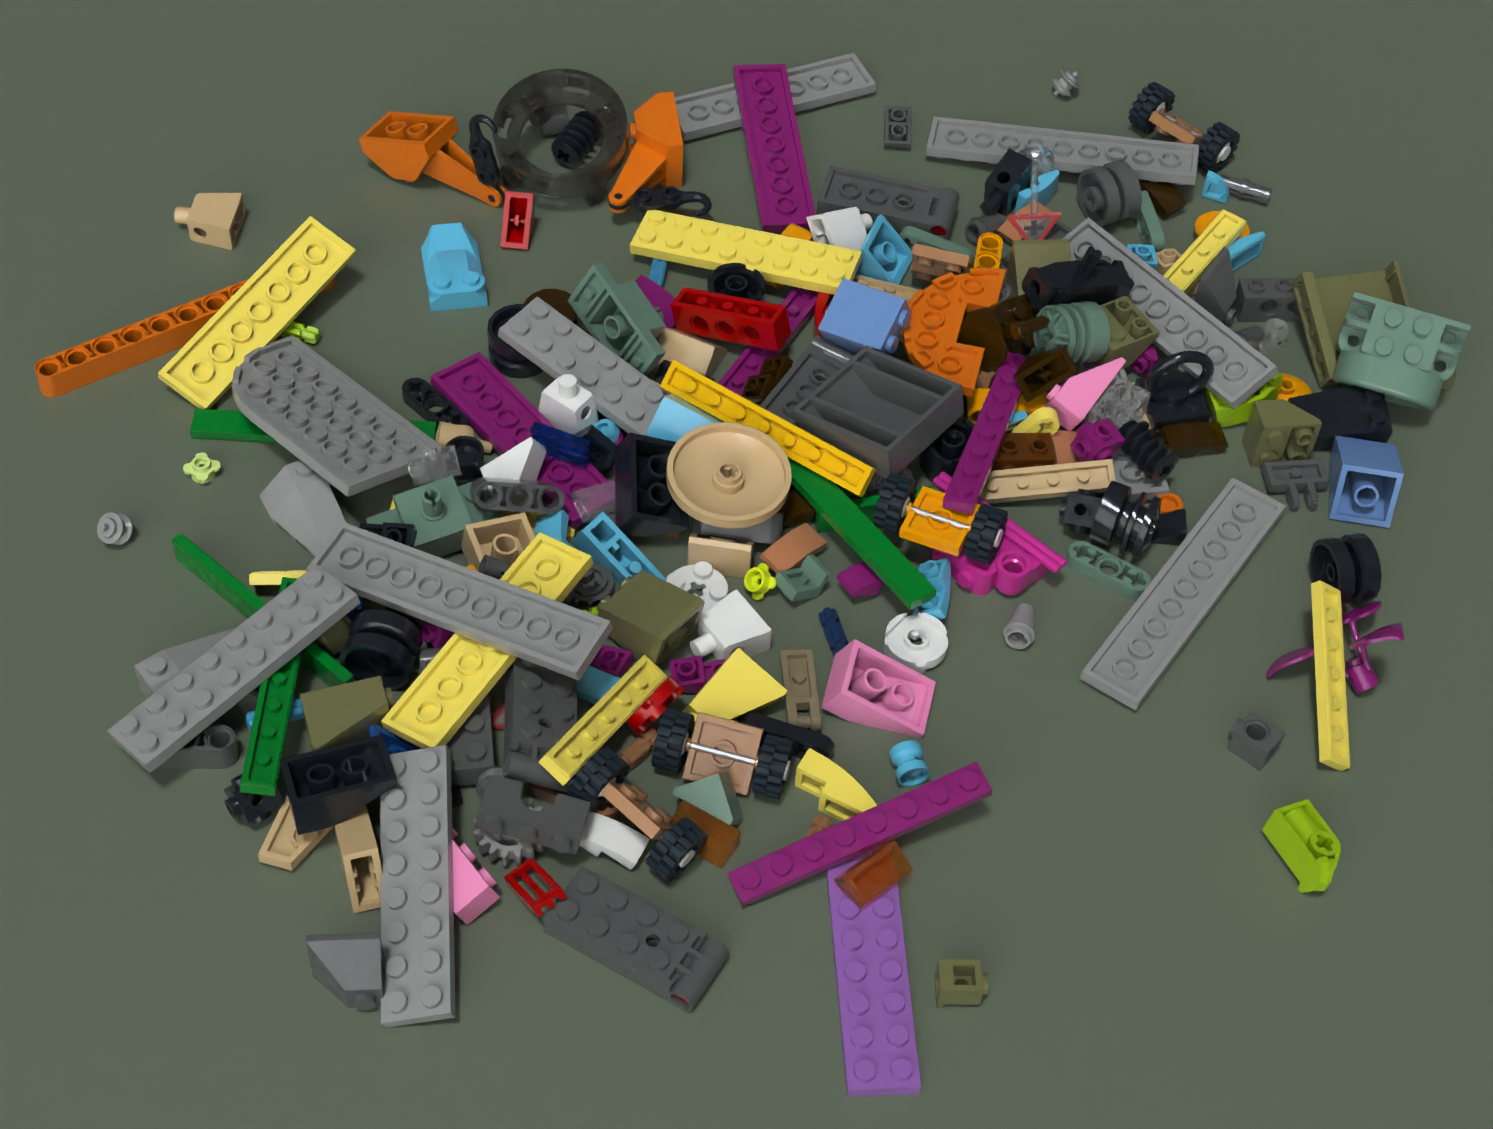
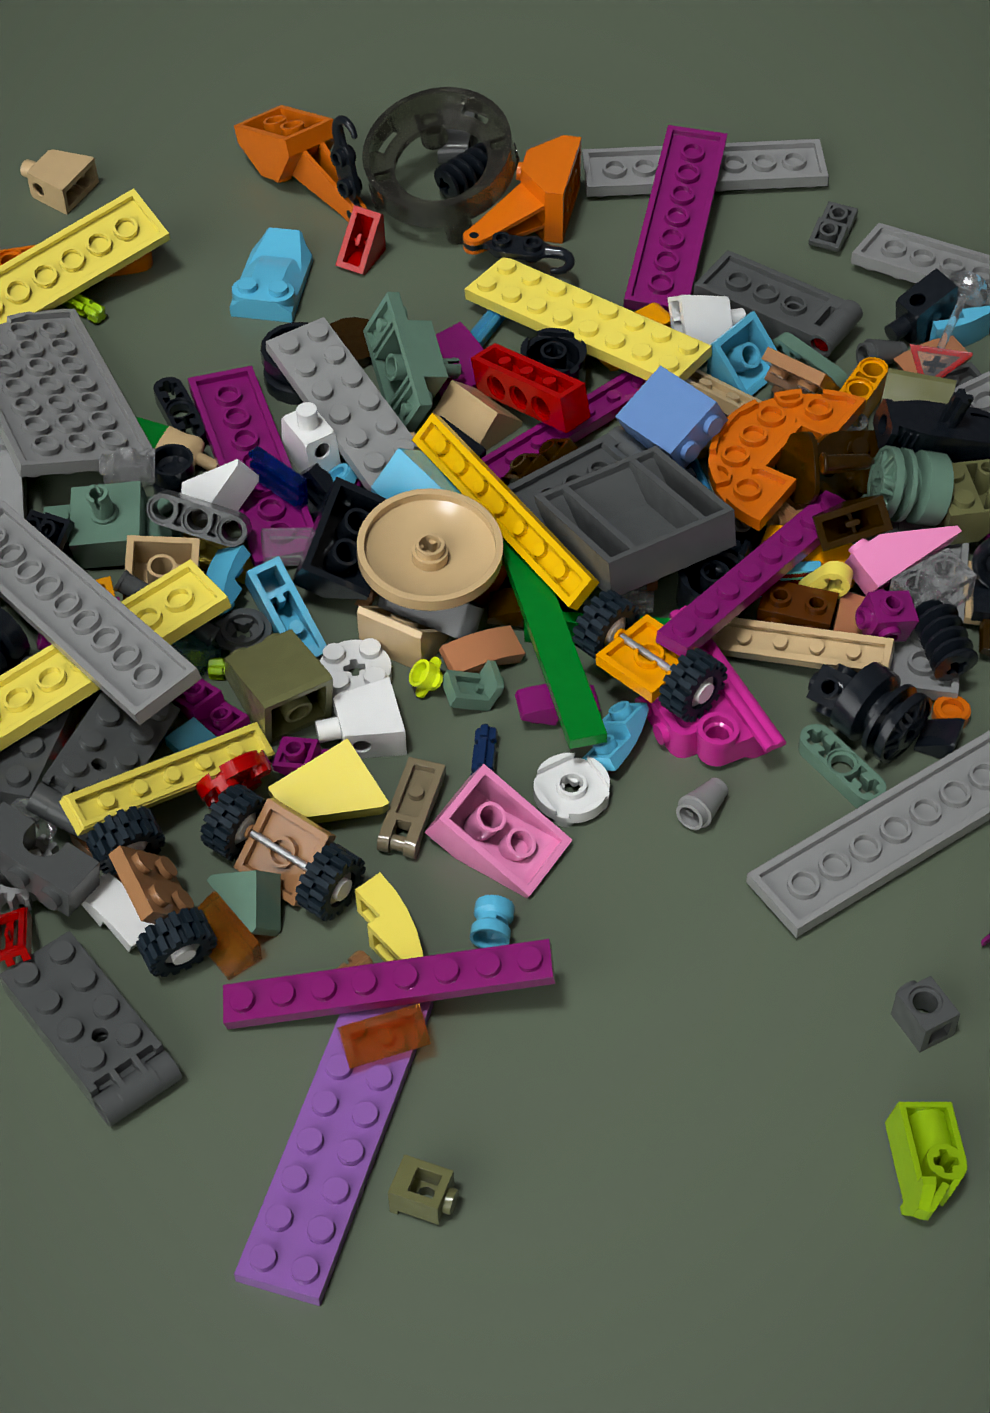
camera: 25 degrees right, 0 degrees up
(639, 748) = (187, 830): medium nougat axle -> none
(802, 737) = (375, 856): black beam -> none

